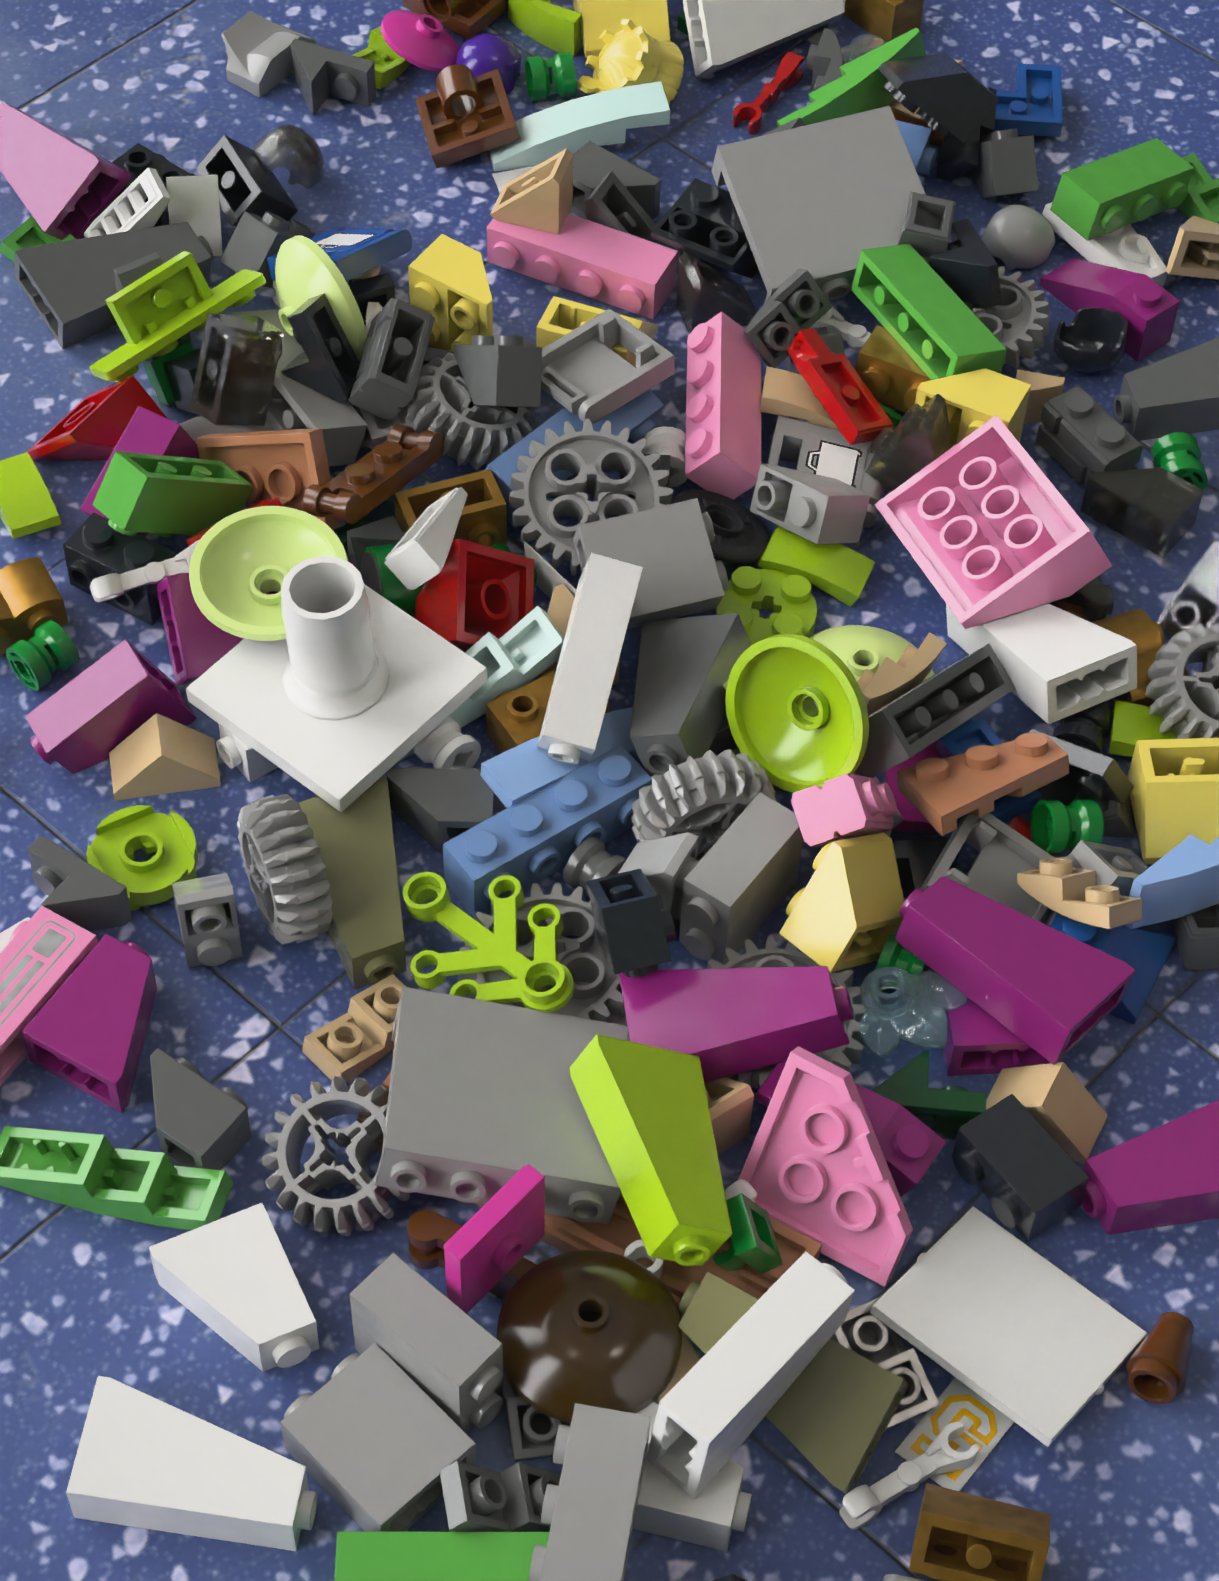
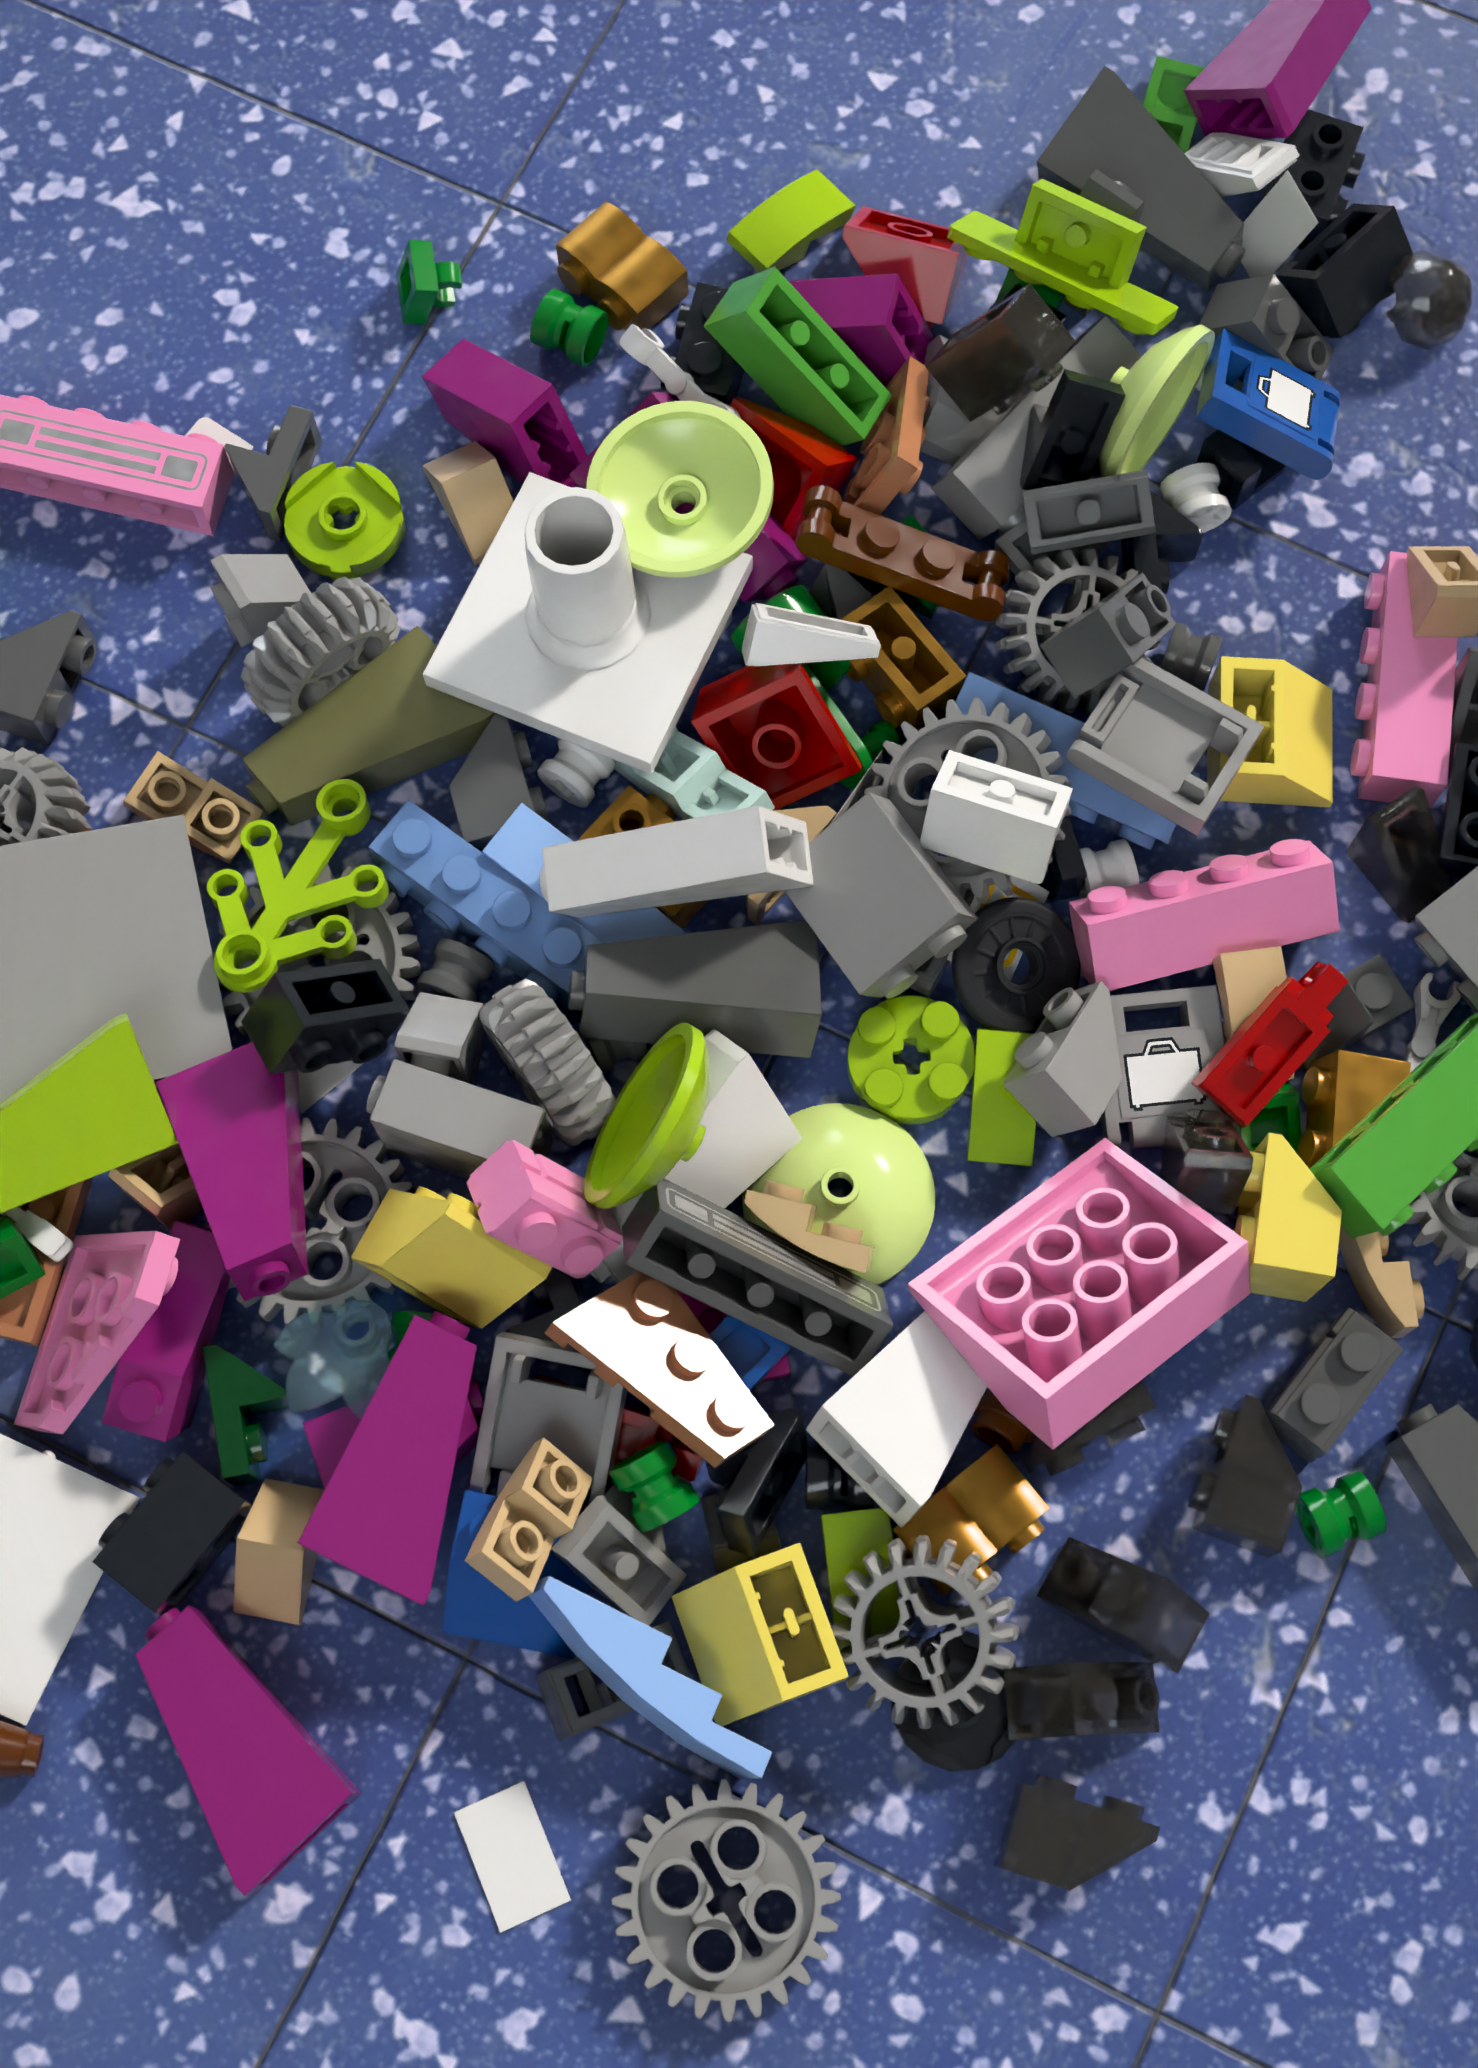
camera: 75 degrees right, 20 degrees up
(97, 1022) = (121, 555): magenta slope -> none
(454, 288) = (1242, 554): light yellow slope -> none
(626, 462) = (994, 816): none -> white panel
(790, 309) = (1378, 946): dark grey slope -> none

